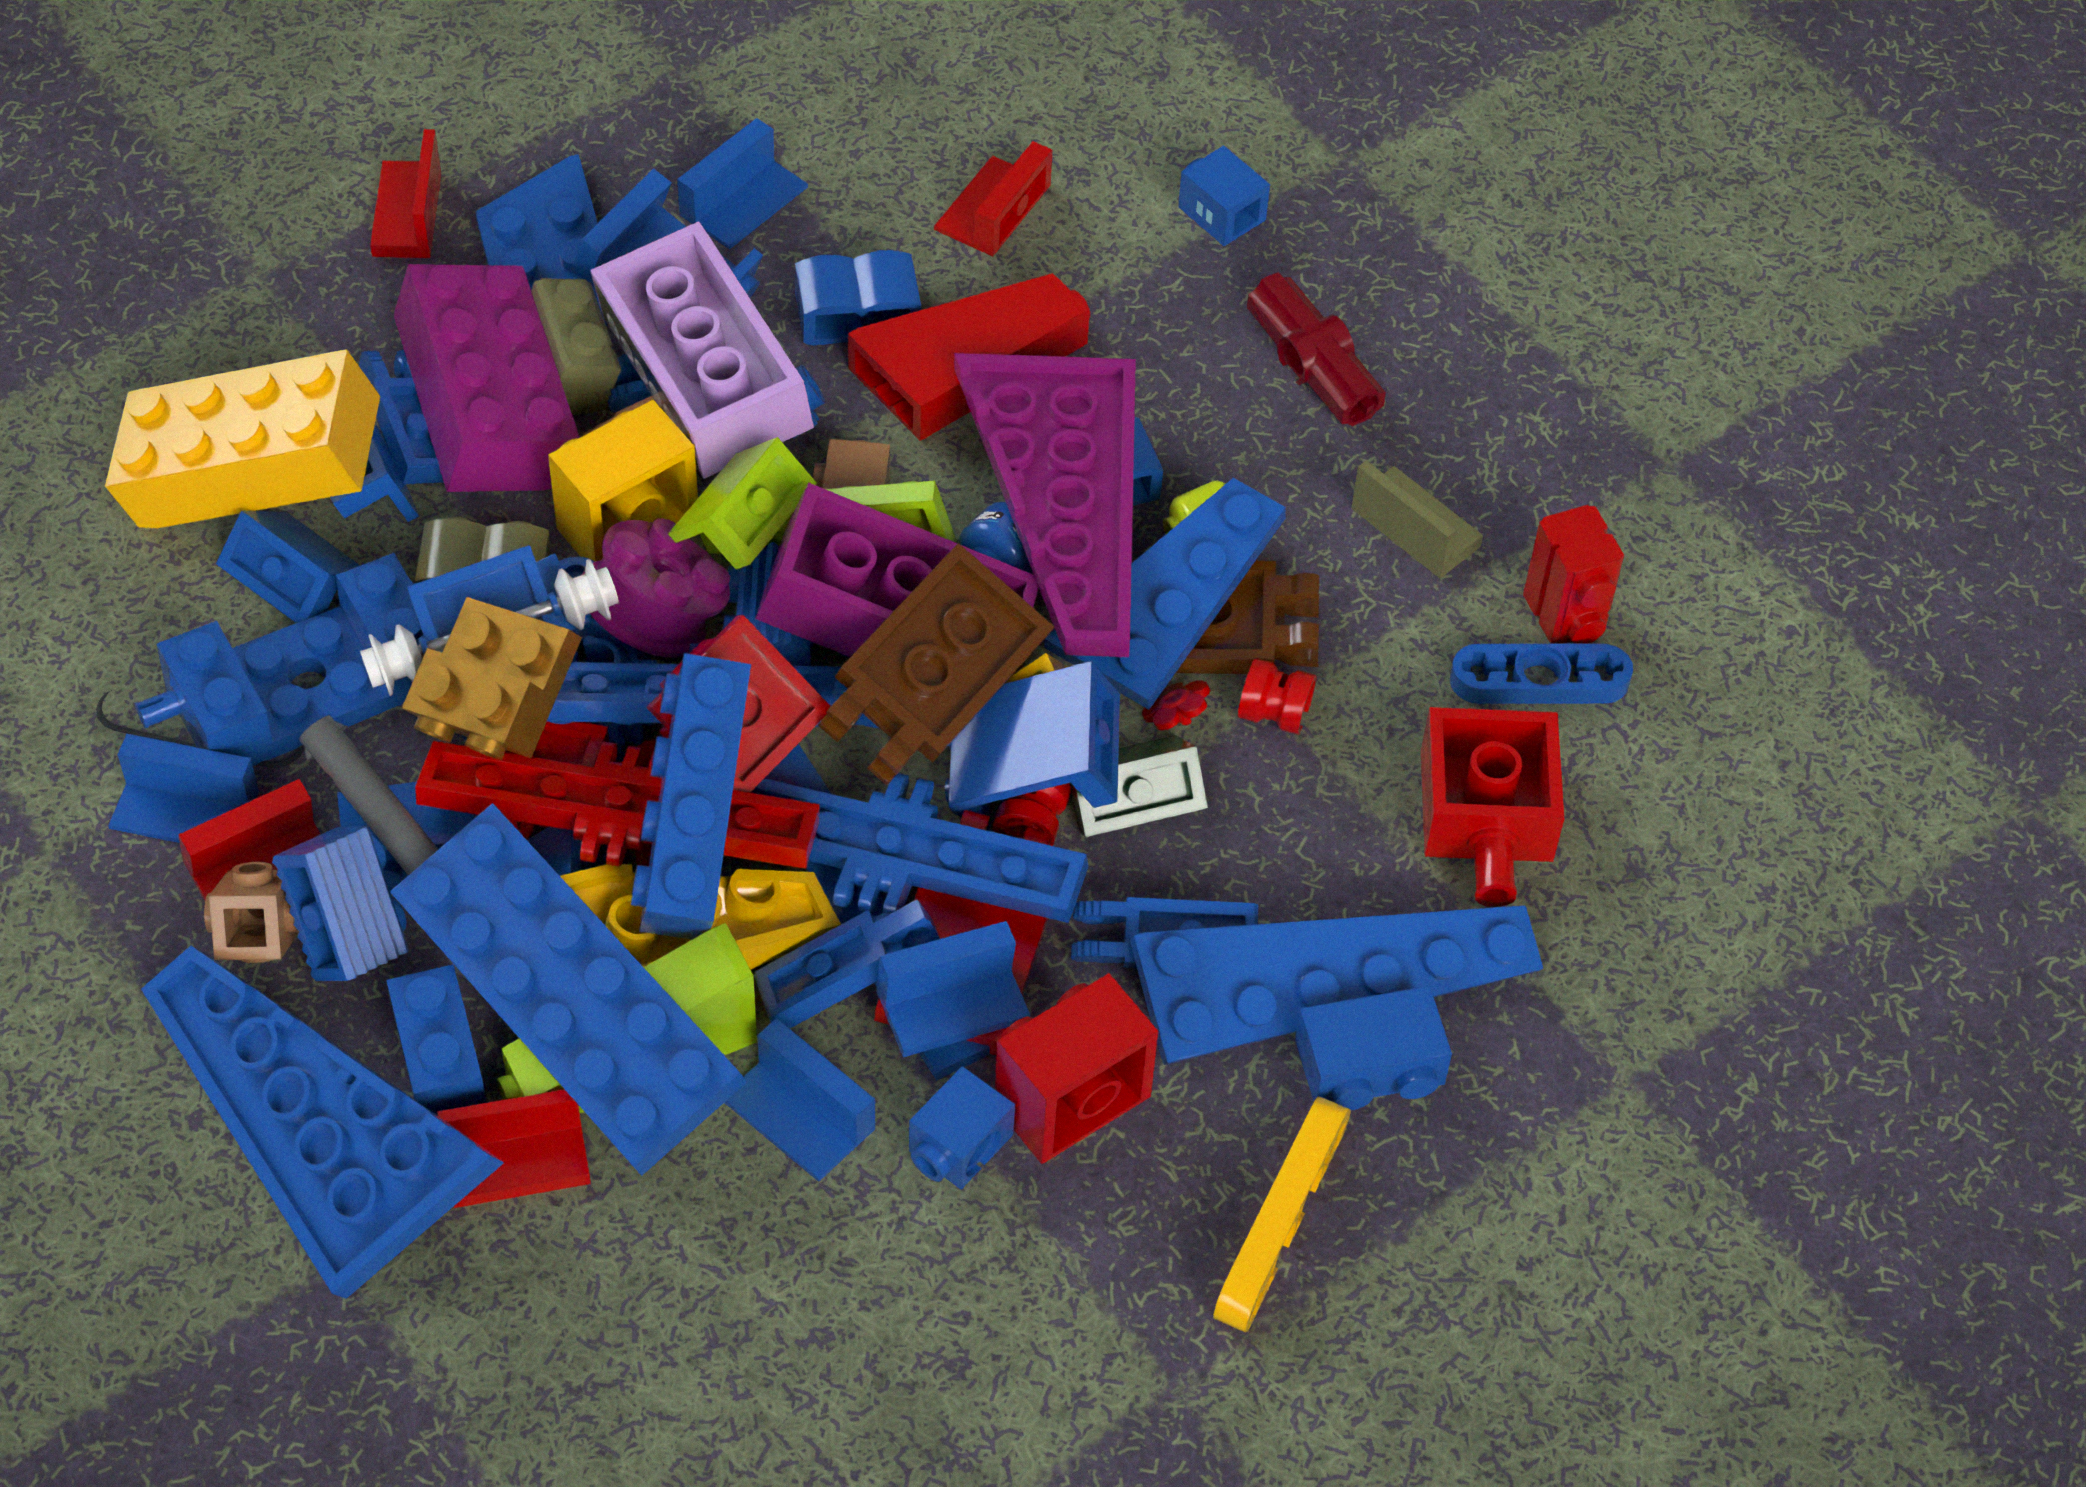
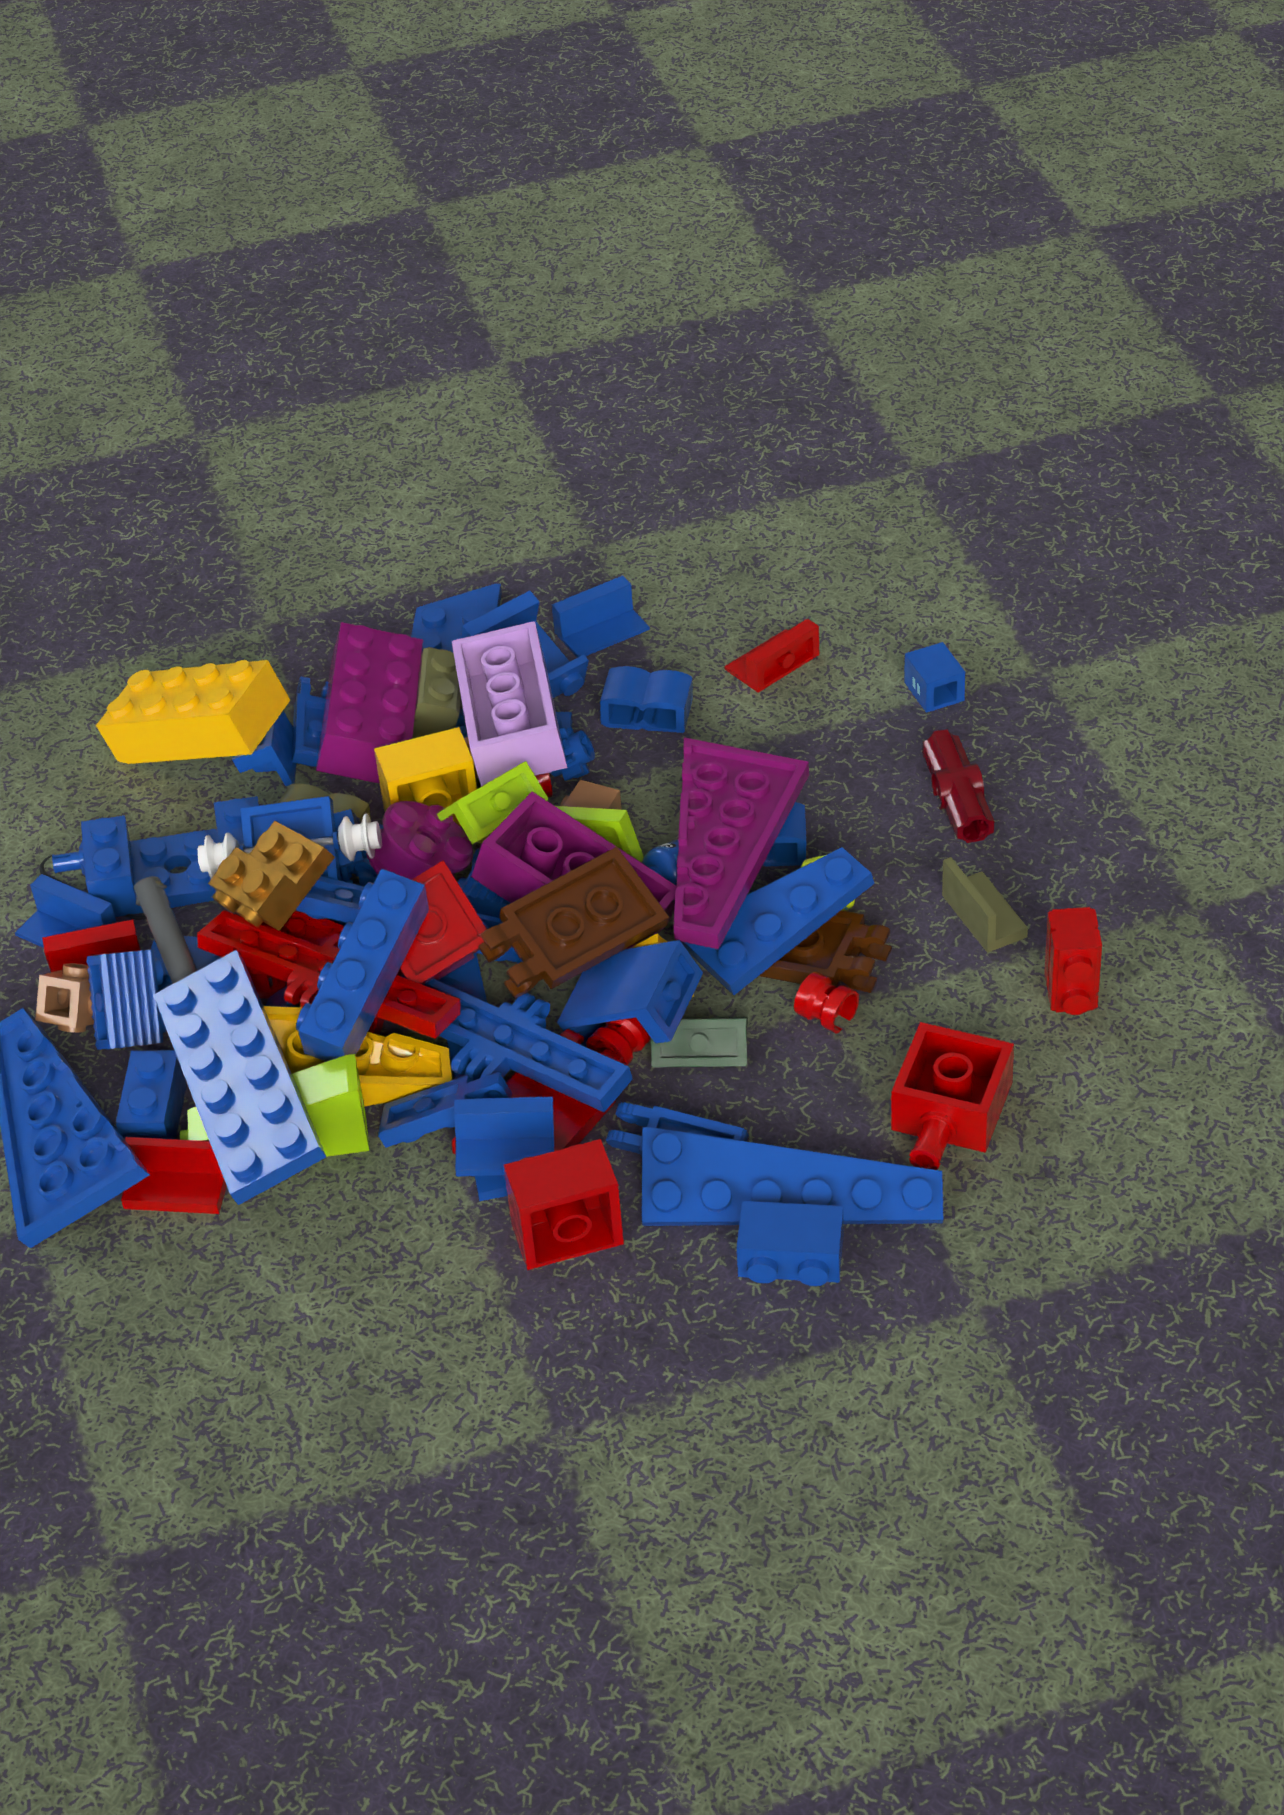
camera: 25 degrees right, 10 degrees down
(284, 562) = (190, 793): blue panel -> none
(407, 204) = (377, 593): red panel -> none
(803, 1102) = (378, 1193): blue panel -> none
(912, 356) = (658, 738): red slope -> none
(959, 1128) = (474, 1230): blue brick -> none
(1178, 705) = (754, 995): red plant -> none
(1281, 1214) = (675, 1335): yellow beam -> none
(1556, 657) = (1023, 1013): blue beam -> none

